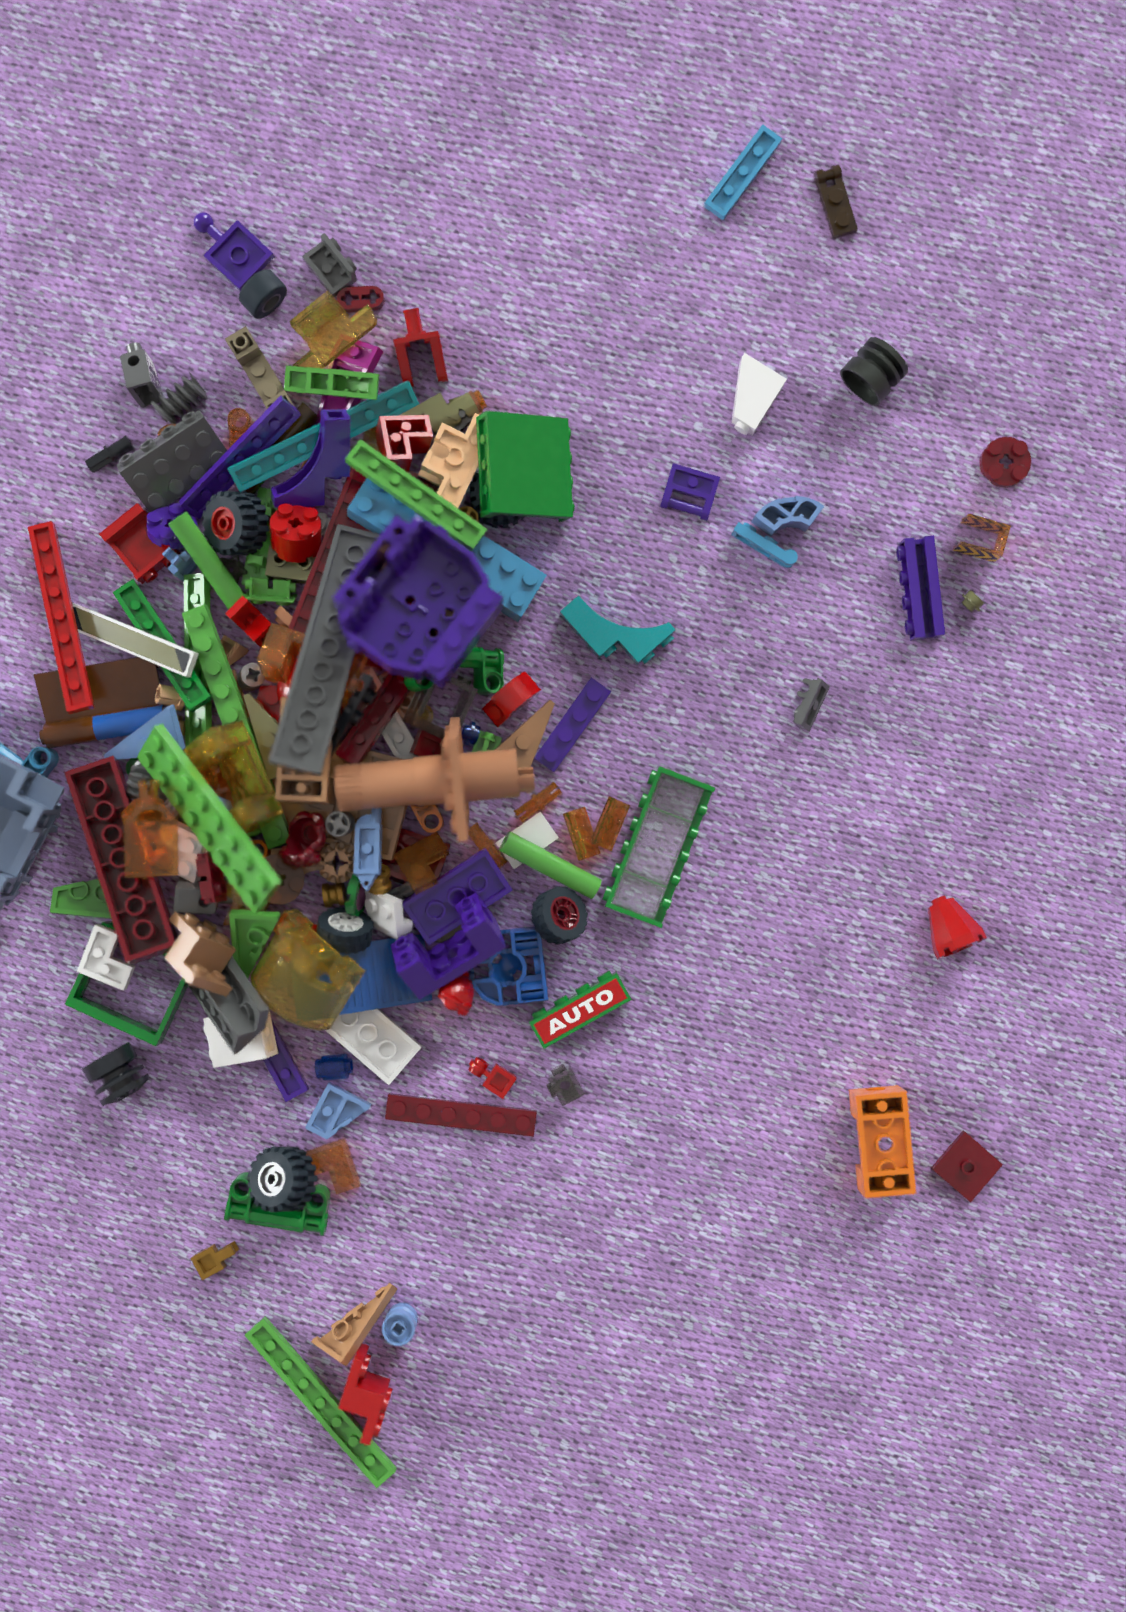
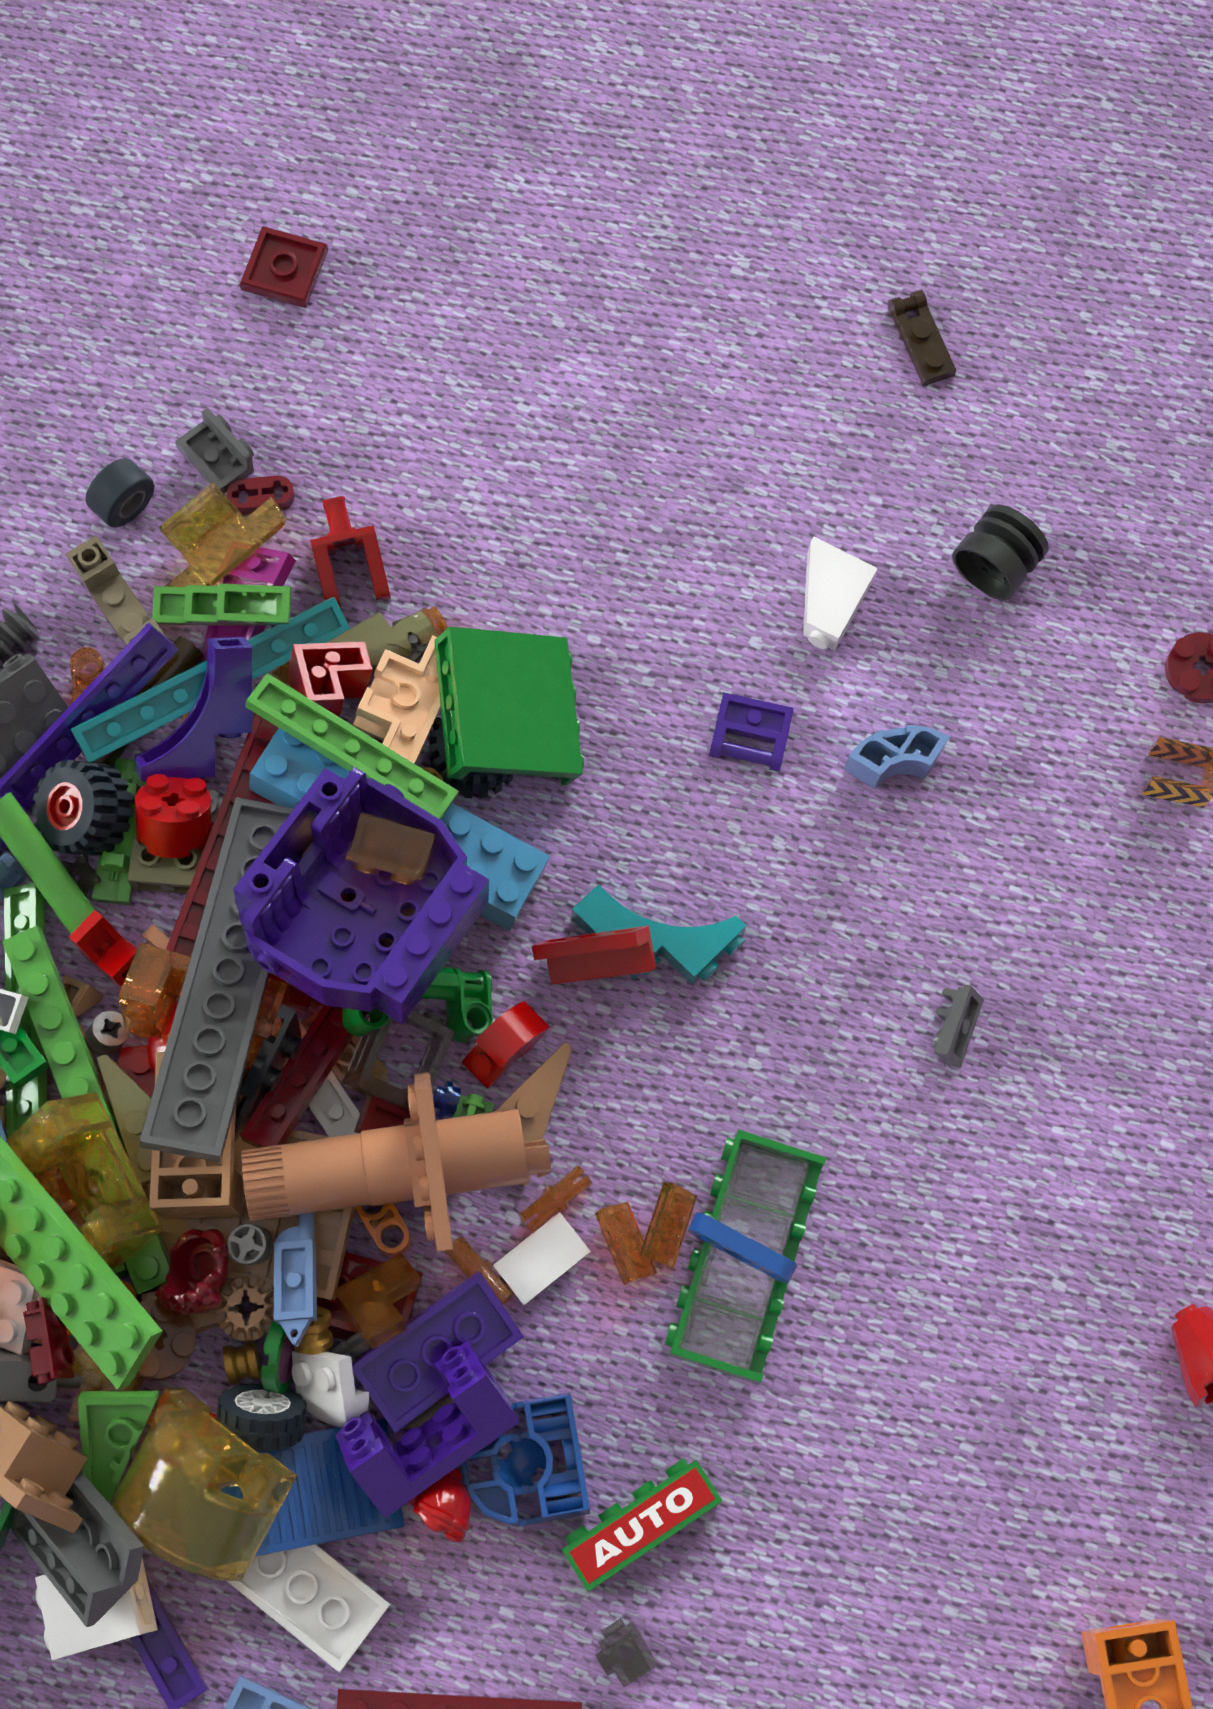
camera: 10 degrees left, 15 degrees down
(236, 252) = (79, 441): dark purple plate -> none
(280, 593) = (151, 905): bright green hinge -> none
(333, 1067) = (248, 1648): clear blue brick -> none
(382, 123) = (284, 267): none -> dark red plate
(439, 571) = (391, 848): none -> clear orange bracket
(497, 1080) = (516, 1652): red plate -> none
(550, 865) = (580, 1293): bright green piece -> none
(571, 916) = (599, 1372): black wheel -> none
(572, 724) = (600, 1079): dark purple plate -> none
(574, 643) = (597, 955): none -> red panel
(655, 844) = (742, 1248): none -> blue beam
(742, 172) = (789, 306): dark azure plate -> none
(765, 545) = (867, 800): dark azure plate -> none
(921, 588) = (1103, 849): dark purple brick -> none
(972, 601) = (1179, 863): olive plate -> none

